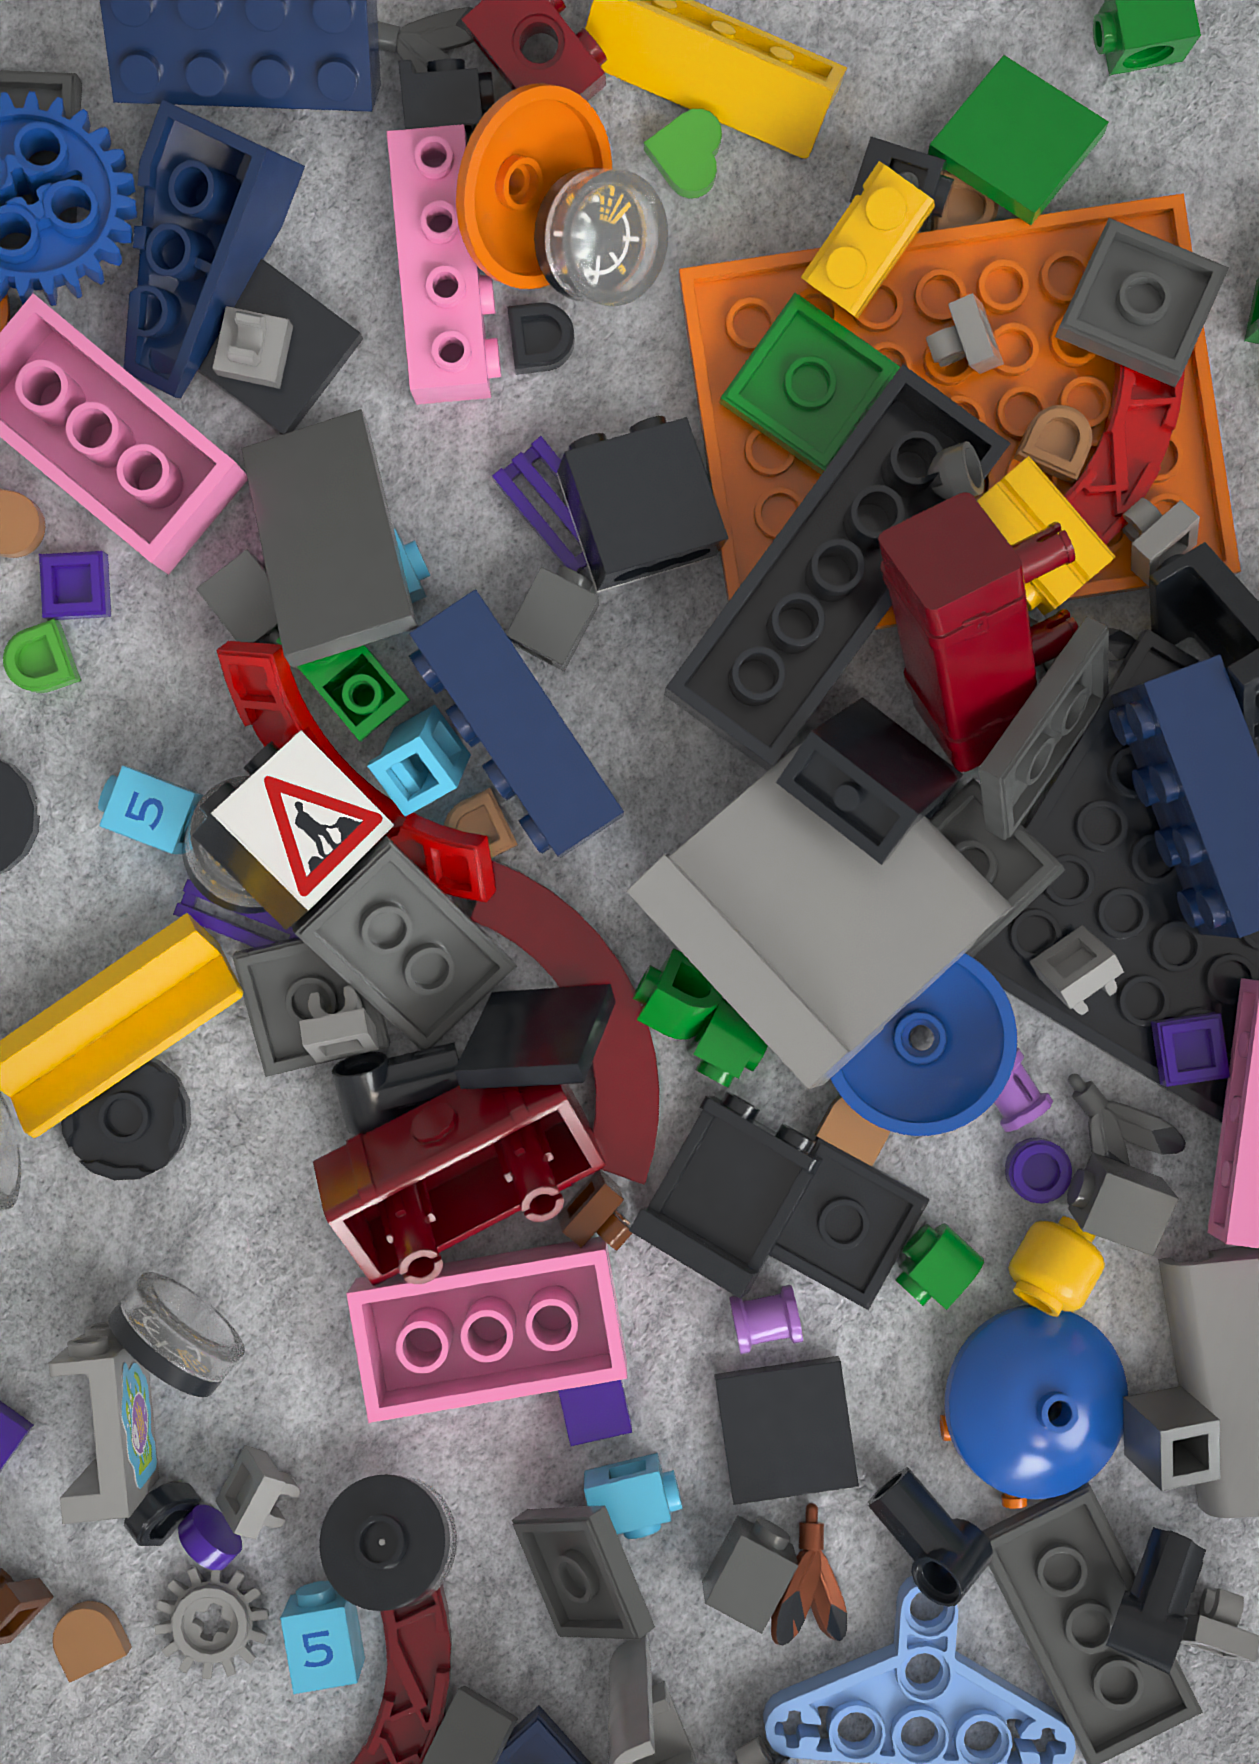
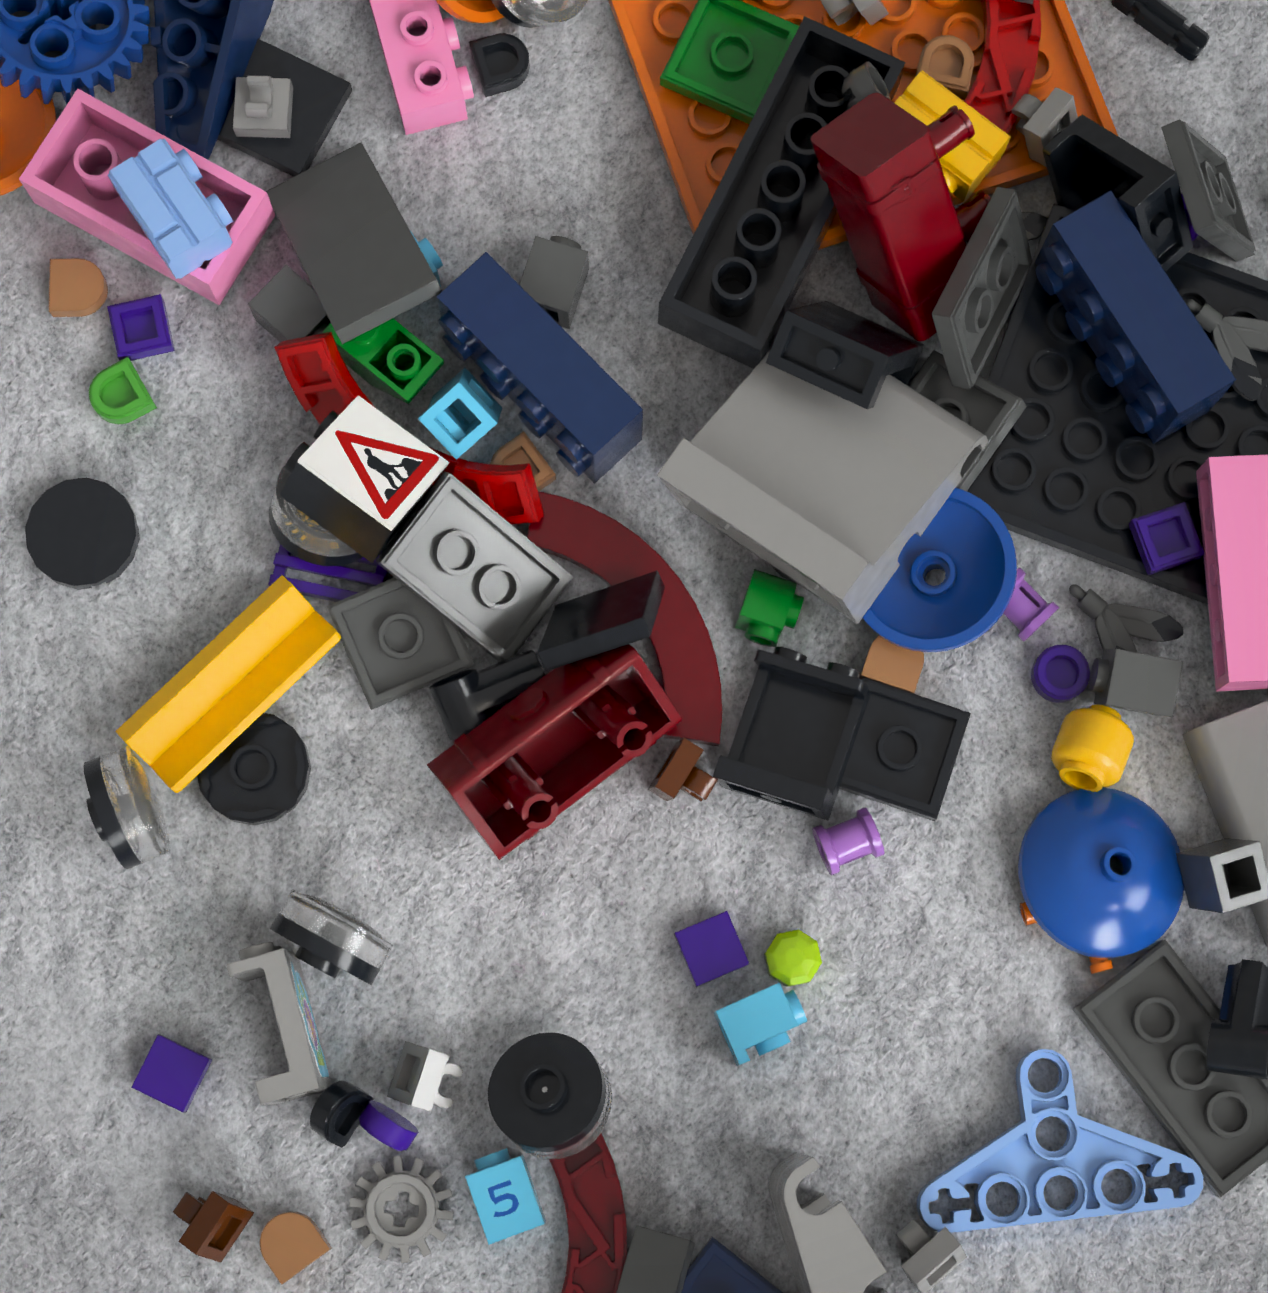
camera: 10 degrees left, 10 degrees down
(117, 468) = (171, 208): none -> light blue brick
(147, 809) = (234, 497): medium azure brick -> none
(340, 1033) = (431, 650): light grey tile -> none
(488, 1330) = (606, 885): bright pink brick -> none
(523, 465) = (505, 166): dark purple tile -> none
(583, 1572) = (728, 1089): dark grey tile -> none
(640, 502) = (609, 174): black piece -> none
(676, 998) = (718, 575): green plate -> none
(681, 1432) = (793, 958): none -> lime tile
(750, 1572) = (879, 1066): dark grey brick -> none
(786, 1430) = (885, 940): black tile -> none
(810, 1586) = (933, 1072): copper piece -> none
(938, 1265) = (989, 767): green plate -> none
(944, 1550) = (1046, 1016): black piece -> none
(1078, 968) = (1054, 483): light grey tile -> none

